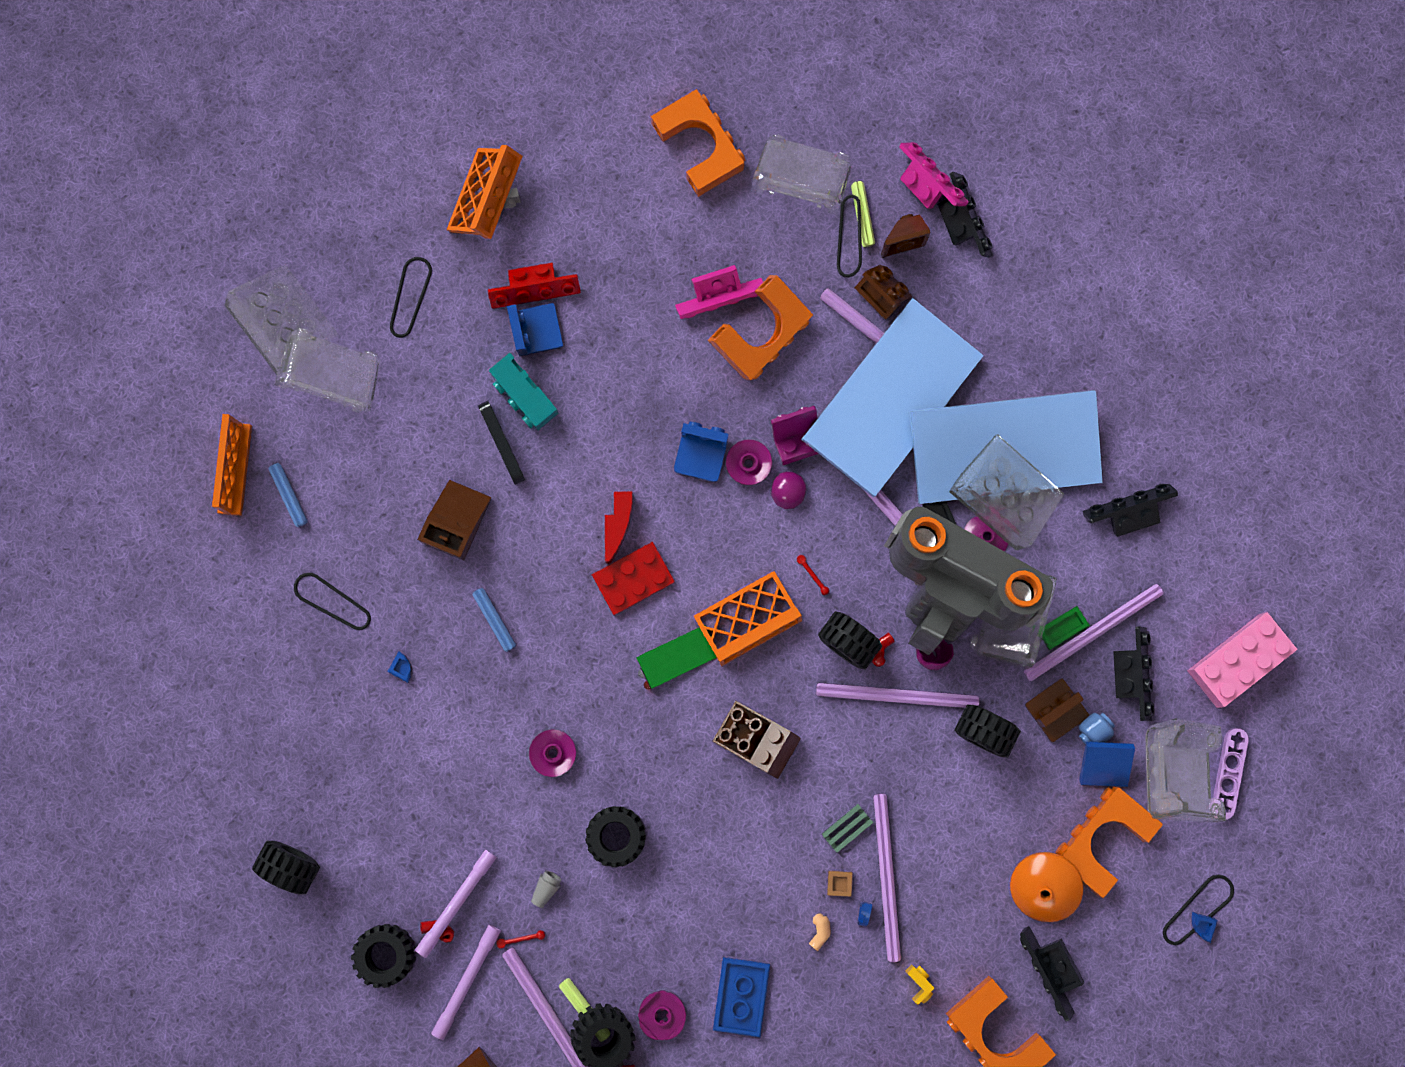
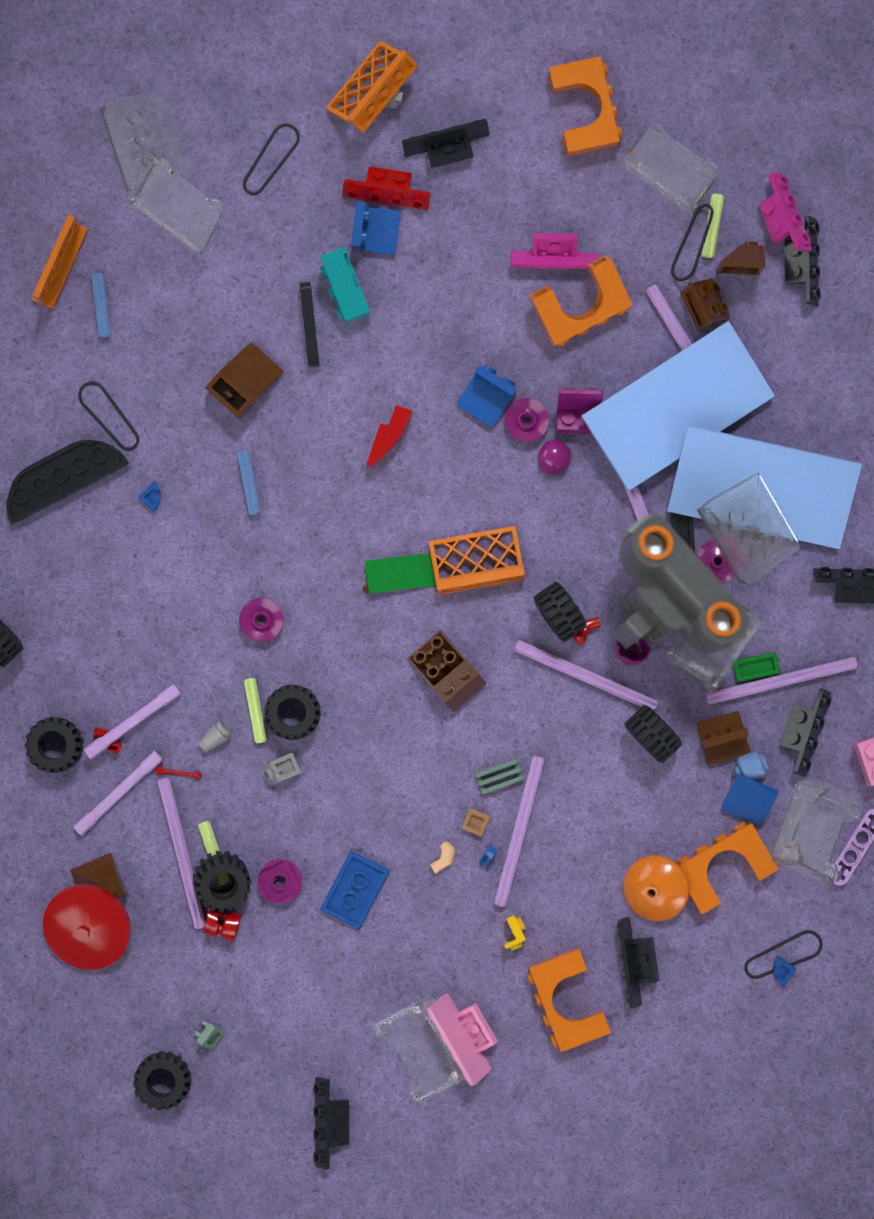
camera: 15 degrees right, 5 degrees up
(302, 679) = (61, 476): none -> black plate
(576, 223) = (447, 144): none -> black bracket
(577, 847) = (255, 710): none -> yellowish green axle
(624, 898) = (281, 769): none -> light grey bracket
(633, 578) = (386, 489): red plate -> none
(801, 560) = (543, 524): red hinge -> none

